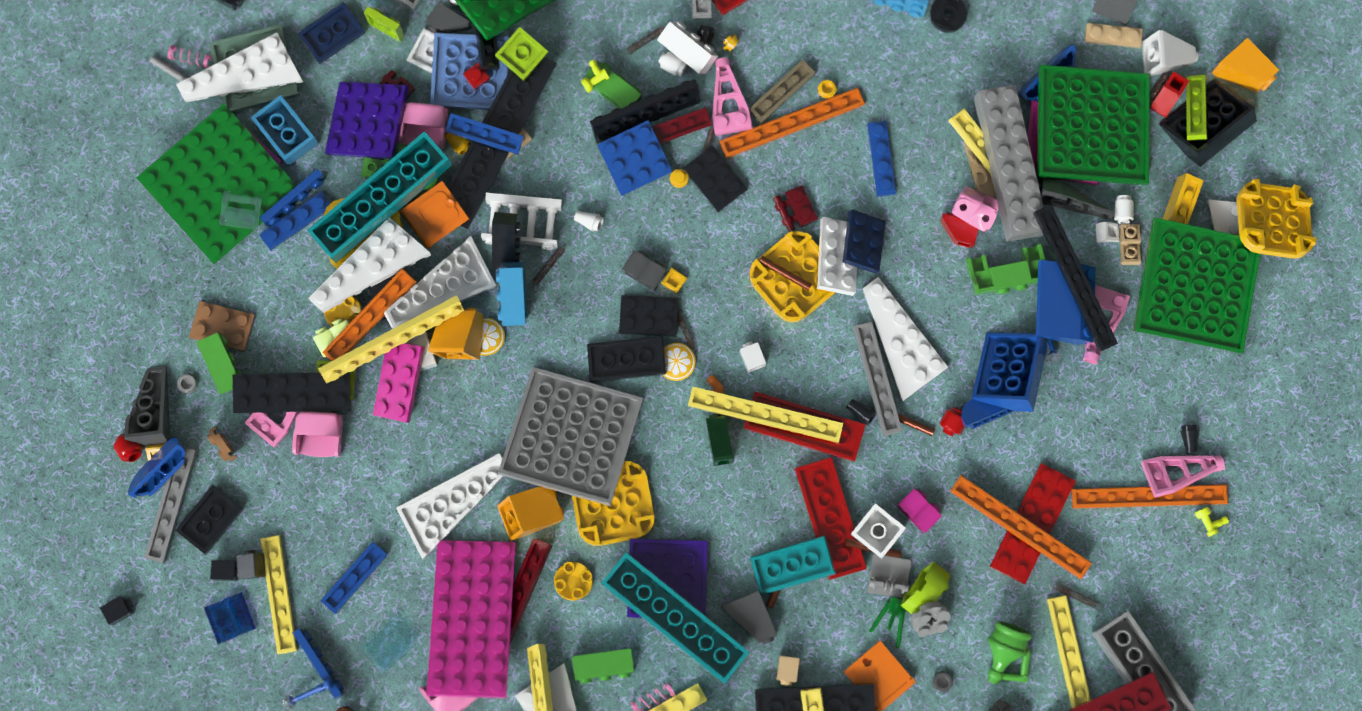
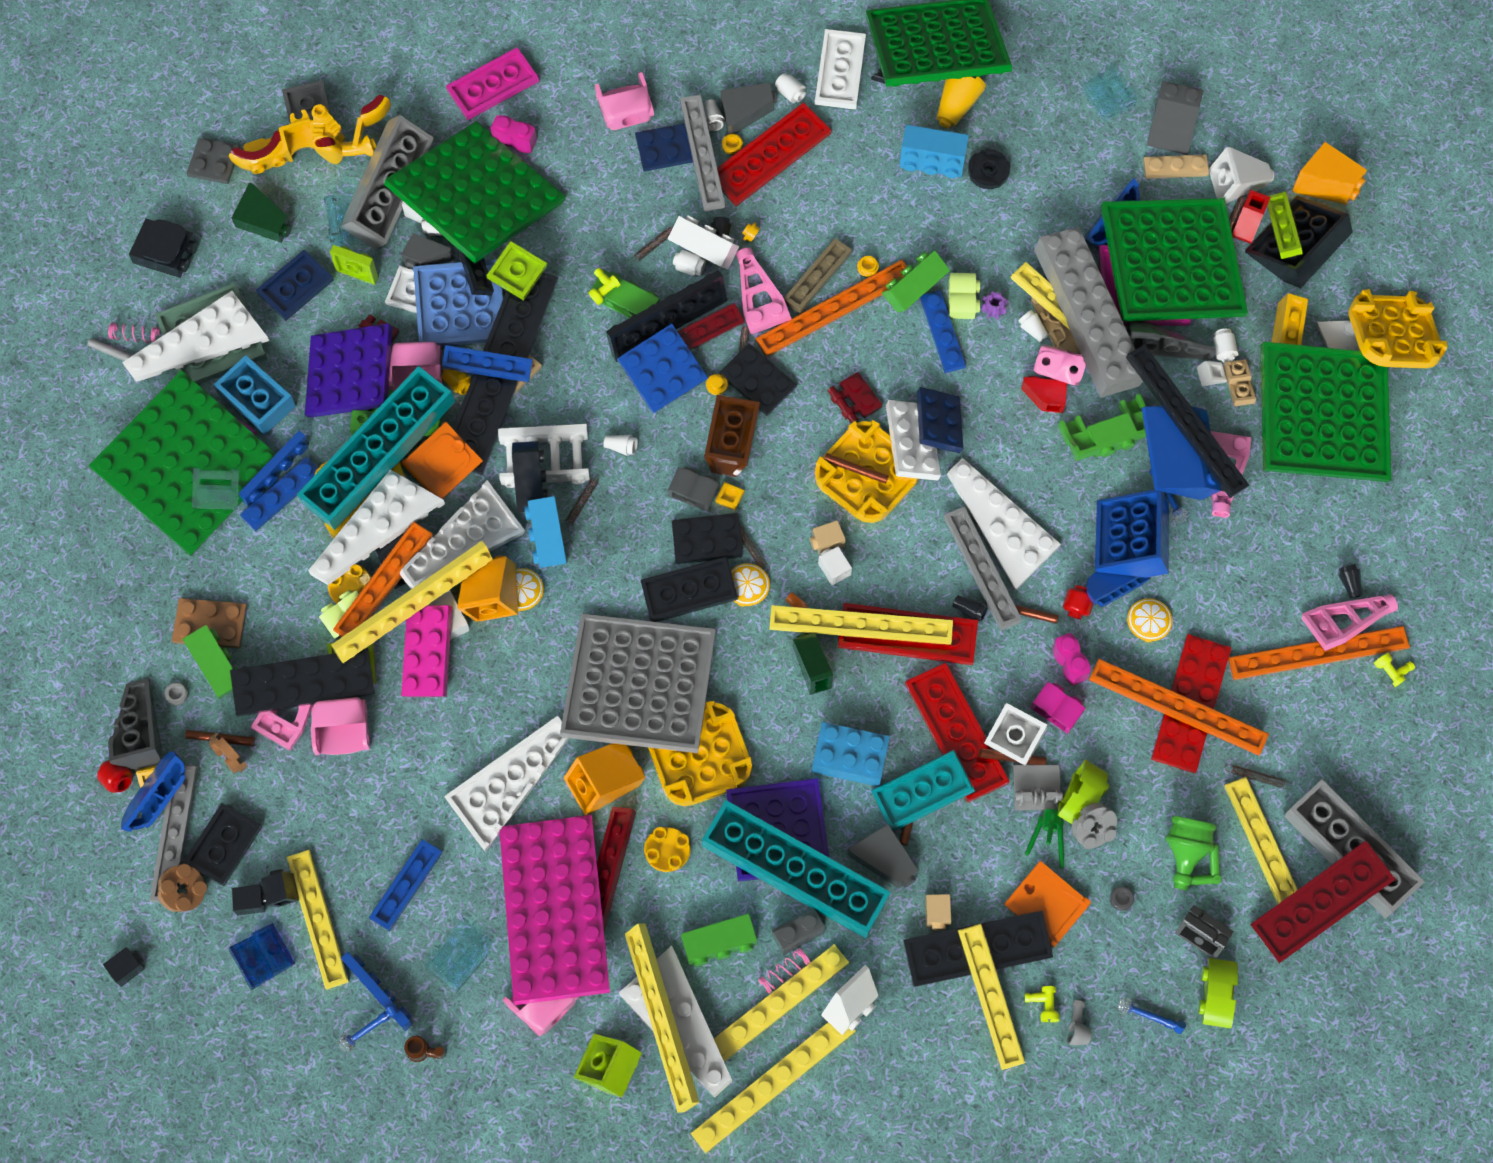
camera: 10 degrees left, 10 degrees down
(181, 555) = (168, 888): none -> medium nougat plate
(221, 428) = (230, 739): none -> copper bar
(476, 76) = (467, 305): red plate -> none
(669, 668) = (798, 931): none -> dark grey brick
(683, 227) = (731, 435): none -> reddish brown slope
(738, 524) = (850, 754): none -> dark azure brick
(750, 331) = (827, 537): none -> tan brick
(865, 110) = (915, 280): none -> bright green brick
(904, 129) = (963, 295): none -> yellowish green brick
(926, 147) = (994, 311): none -> medium lavender gear
(939, 476) = (1074, 663): none -> dark pink brick
(961, 166) = (1032, 324): none -> white cone
(1011, 445) = (1149, 619): none -> dish

